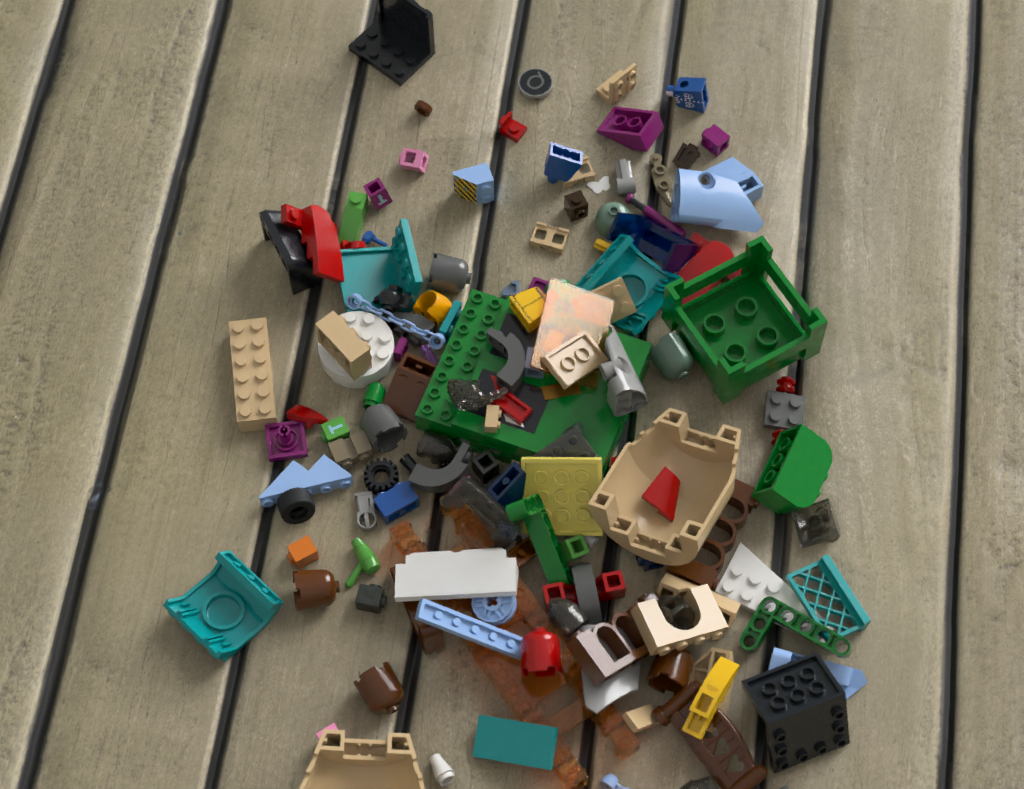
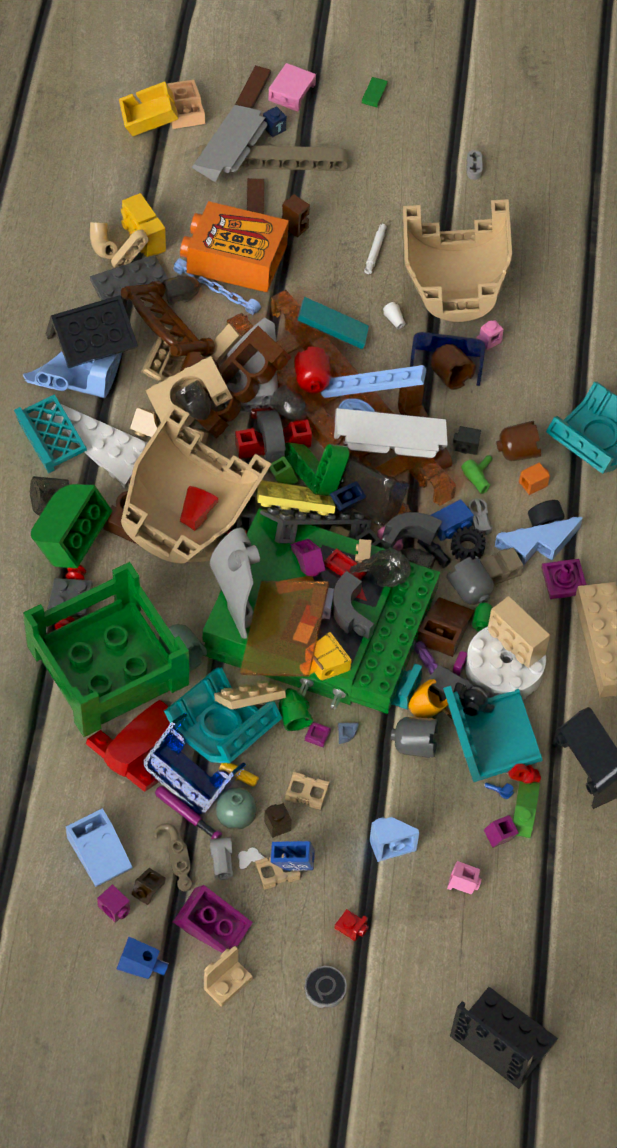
camera: 175 degrees right, 5 degrees down
(305, 414) = (550, 599): red slope -> none
(319, 236) = (560, 755): red slope -> none
(334, 430) = (517, 584): bright green brick -> none
(376, 724) = (431, 341): none -> clear blue windscreen
(423, 108) = (458, 948): reddish brown tile -> none
(432, 340) = (511, 698): light blue piece -> none
(550, 410) = (309, 557): none -> magenta arch
(574, 359) = (283, 597): tan tile -> none
(709, 697) = (164, 335): yellow slope -> none
(714, 204) = (129, 812): light blue panel -> none
(794, 625) = (81, 403): green beam -> none

